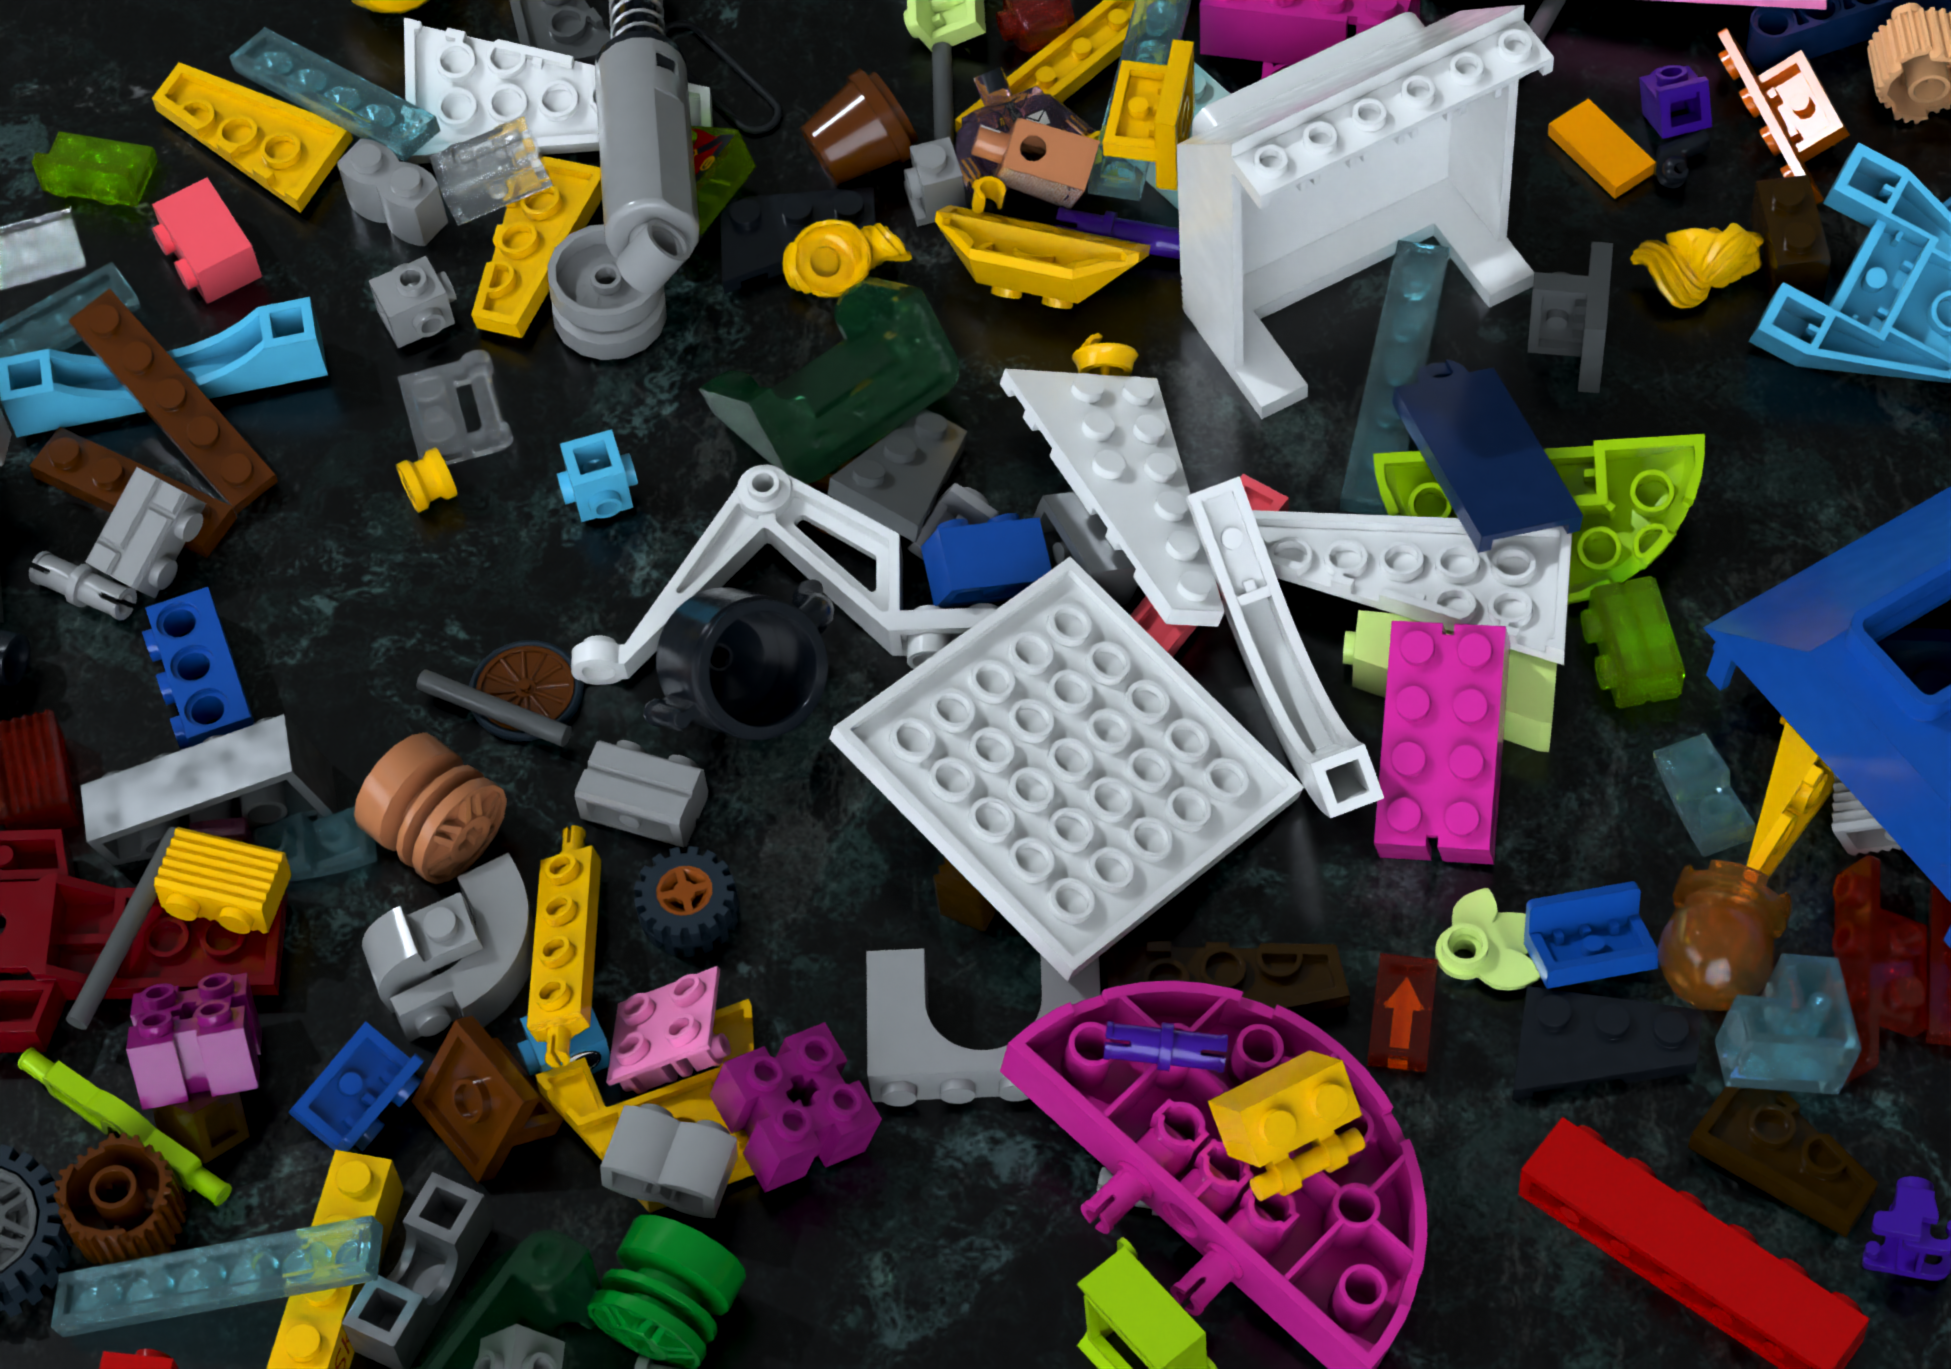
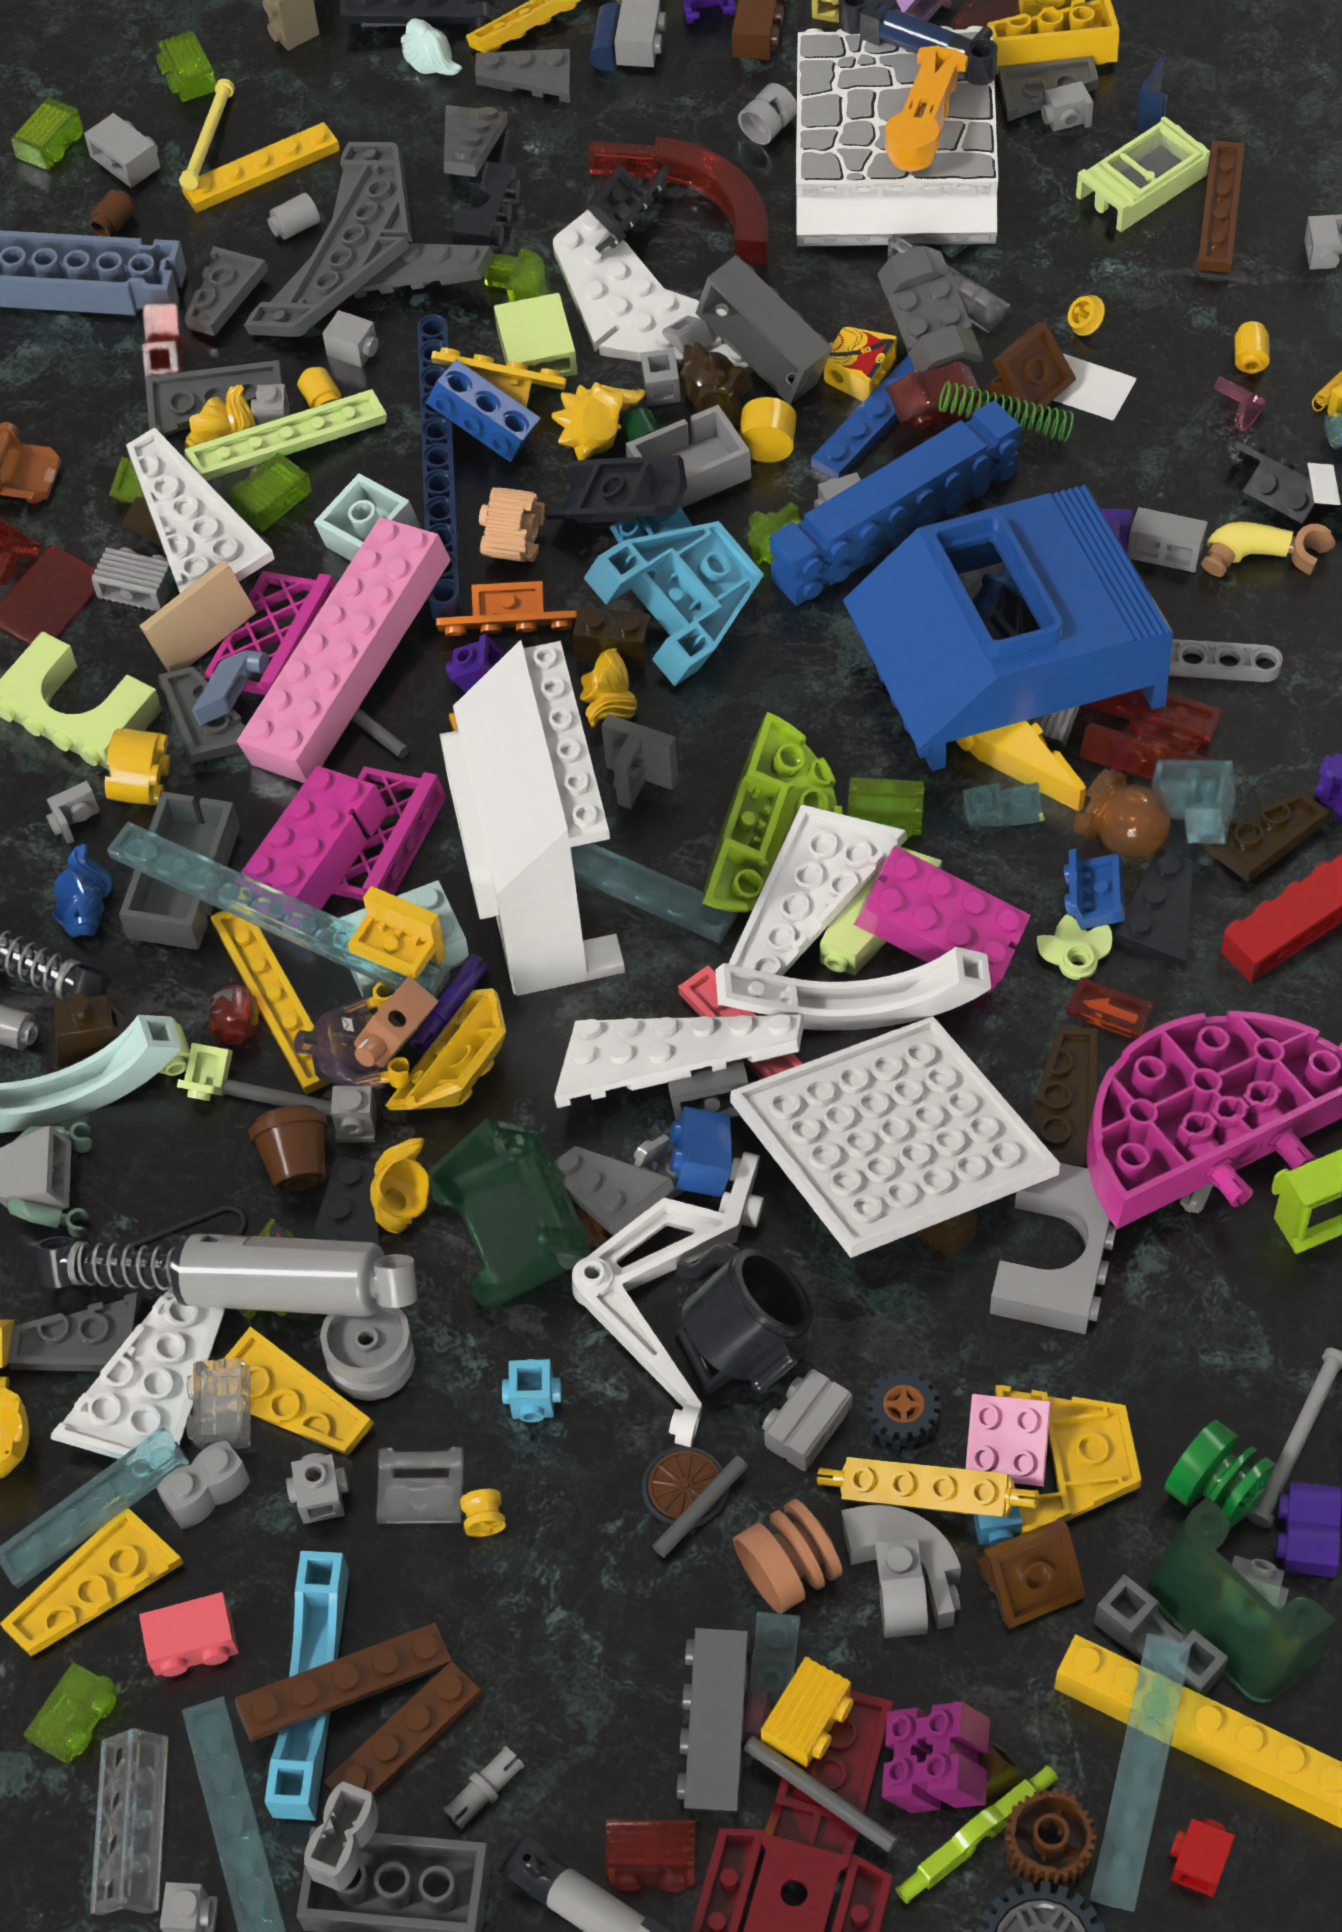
camera: 75 degrees left, 0 degrees up
(147, 533) = (465, 1720): light grey brick -> none
(196, 654) = (585, 1694): blue brick -> none
(355, 1089) = (998, 1657): blue bracket -> none
(669, 1160) = (1122, 1451): light grey brick -> none
(794, 1107) = (1099, 1367): magenta brick -> none
(1104, 357) = (550, 1046): yellow hat -> none
(1165, 1046) = (1151, 1111): dark purple pin -> none
(1284, 1111) = (1217, 1057): yellow brick -> none
(1484, 454) = (732, 836): dark blue piece -> none

